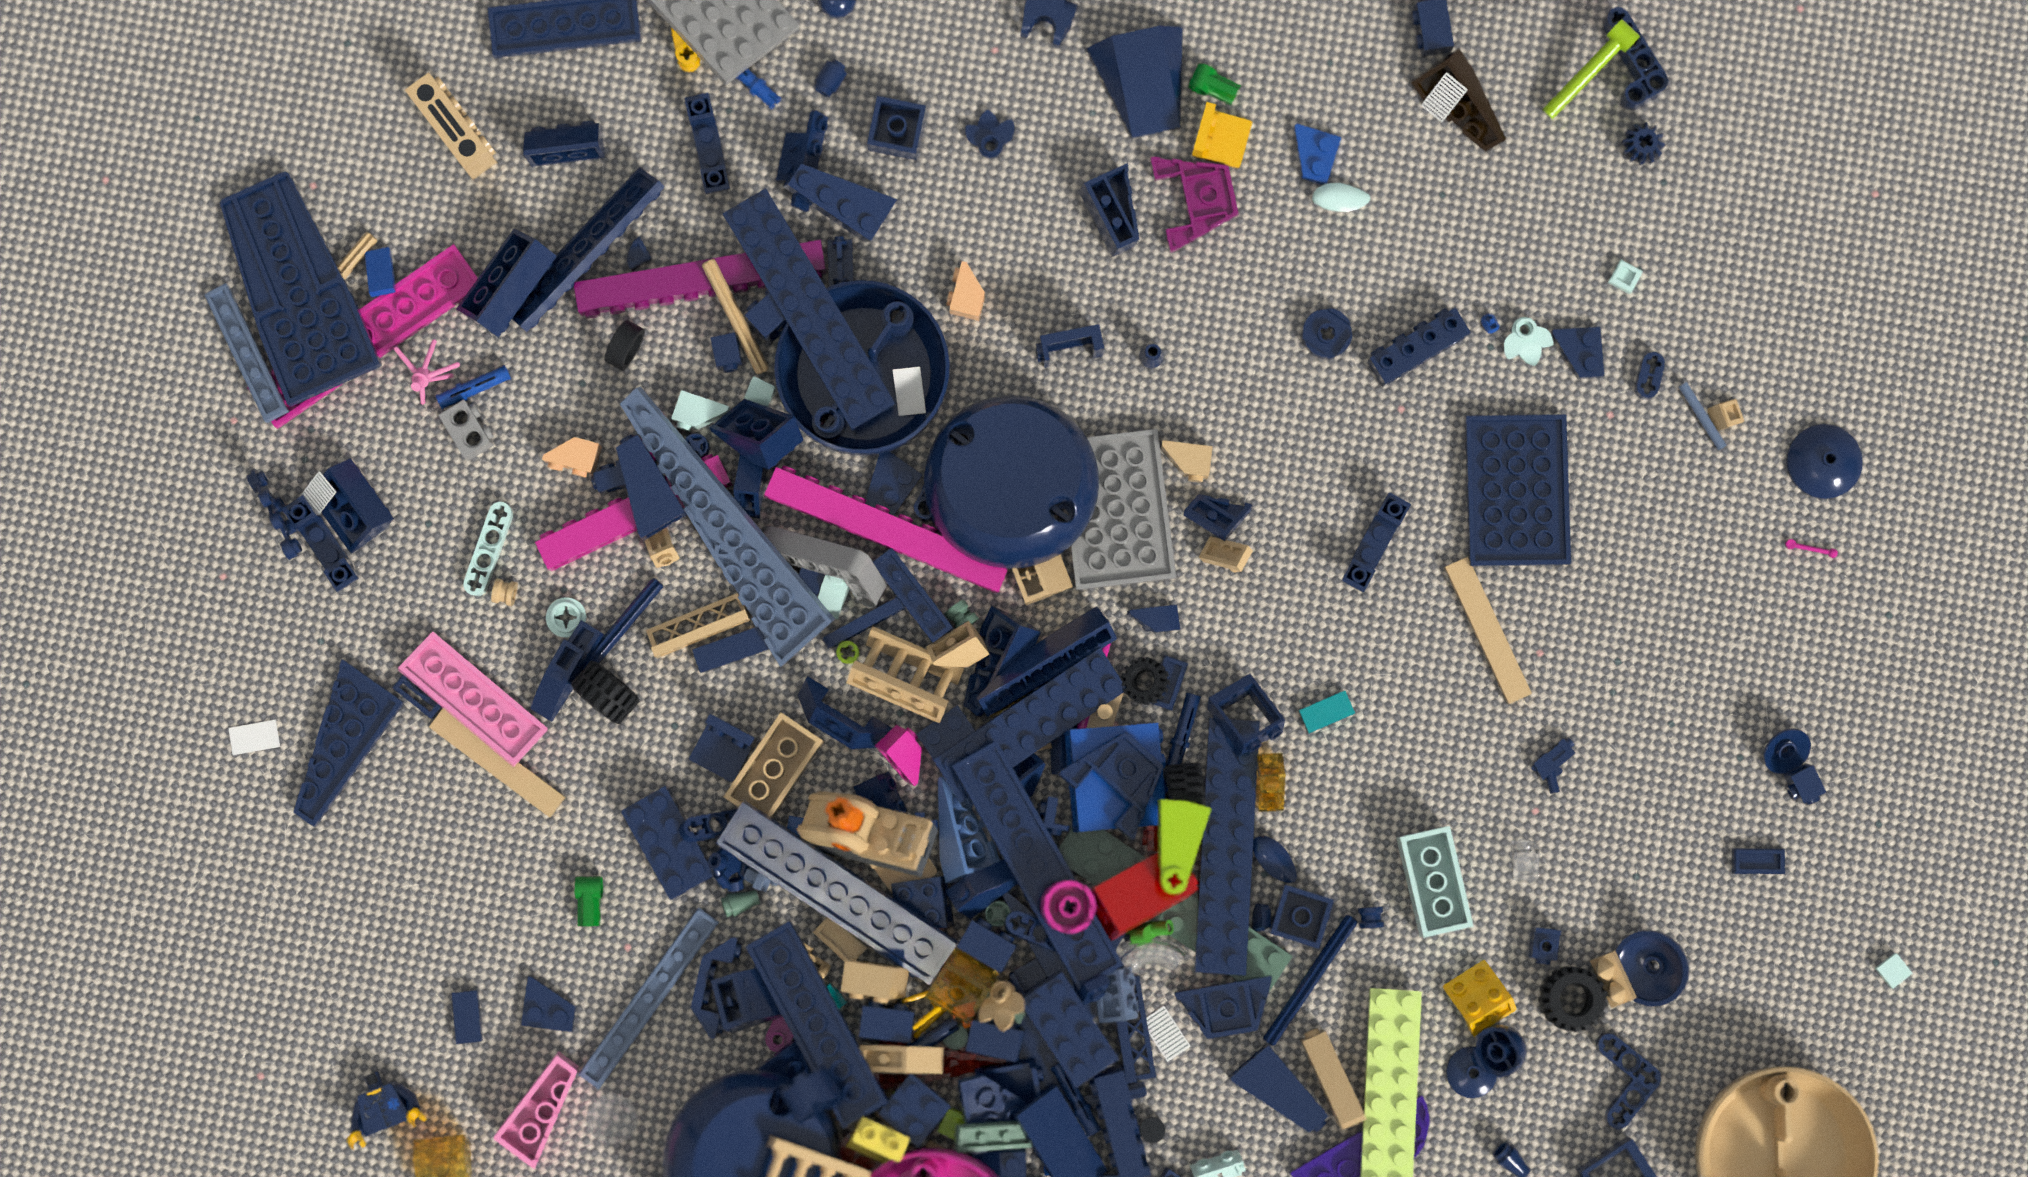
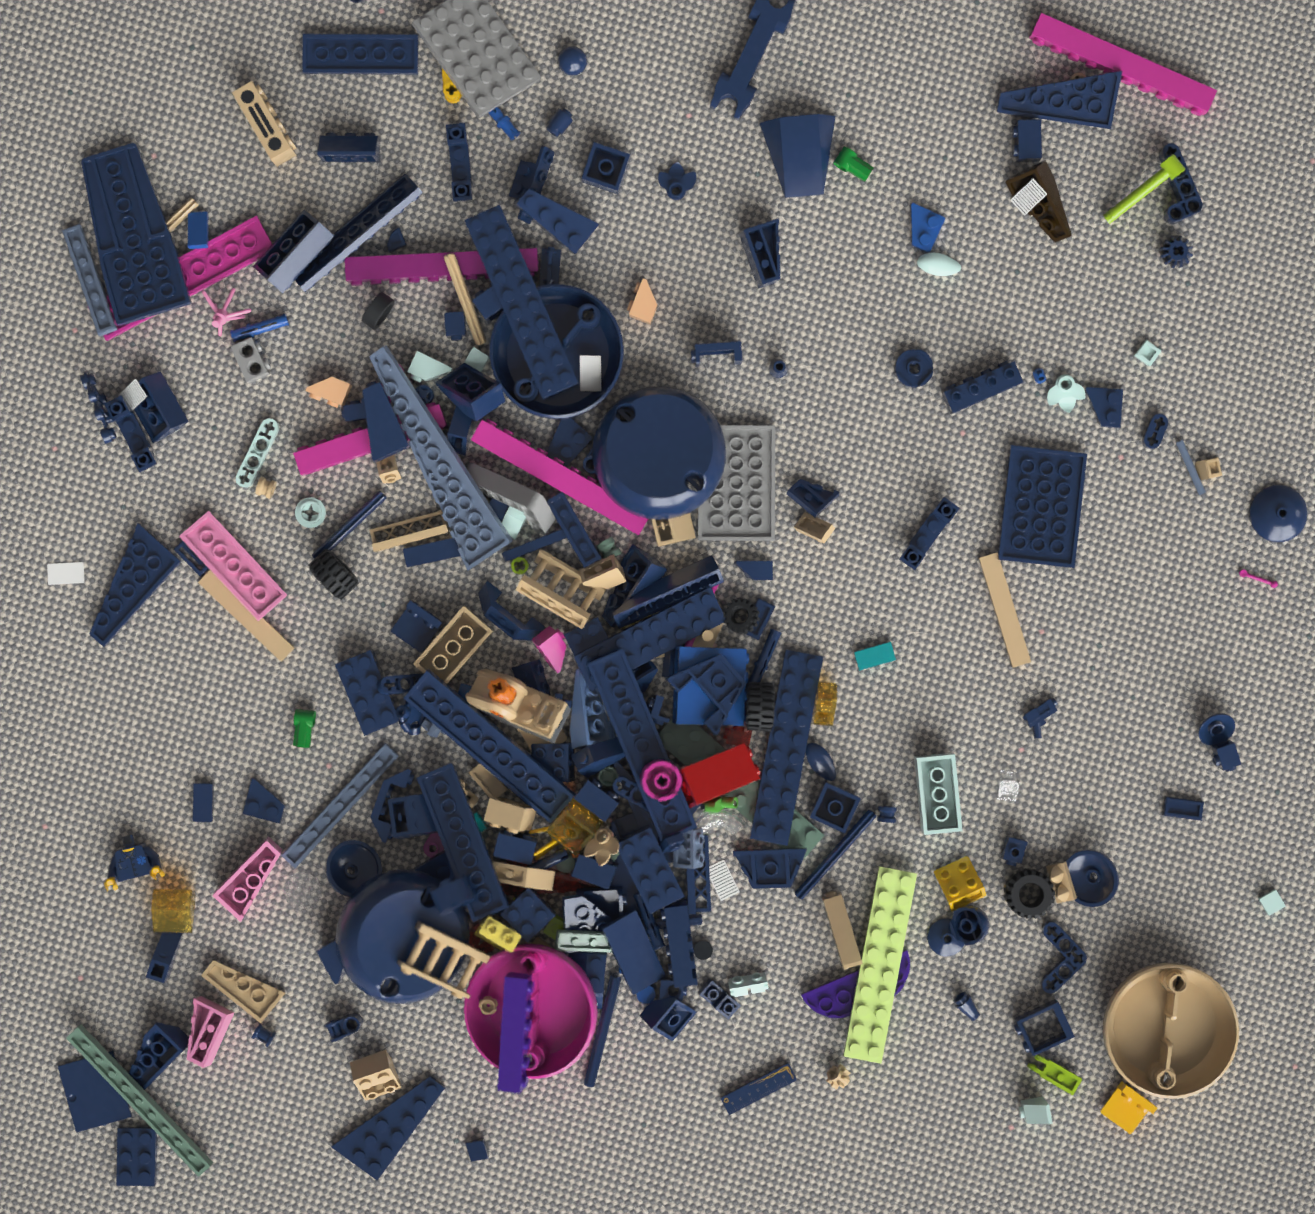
camera: 10 degrees right, 5 degrees up
(564, 669) = (305, 552): dark blue slope -> none
(676, 1063) = (356, 856): none -> dark blue dish
(737, 903) = (416, 743): sand green cone -> none
(1179, 837) = (750, 740): lime piece -> none
(1189, 459) = (796, 451): tan slope -> none
(1206, 193) = (837, 250): magenta wing -> none
(1221, 137) = (854, 206): yellow bracket -> none
(1236, 692) = (805, 634): dark blue window -> none
(1261, 917) = (805, 803): dark blue tile -> none
(1276, 1086) = (798, 928): dark blue slope -> none

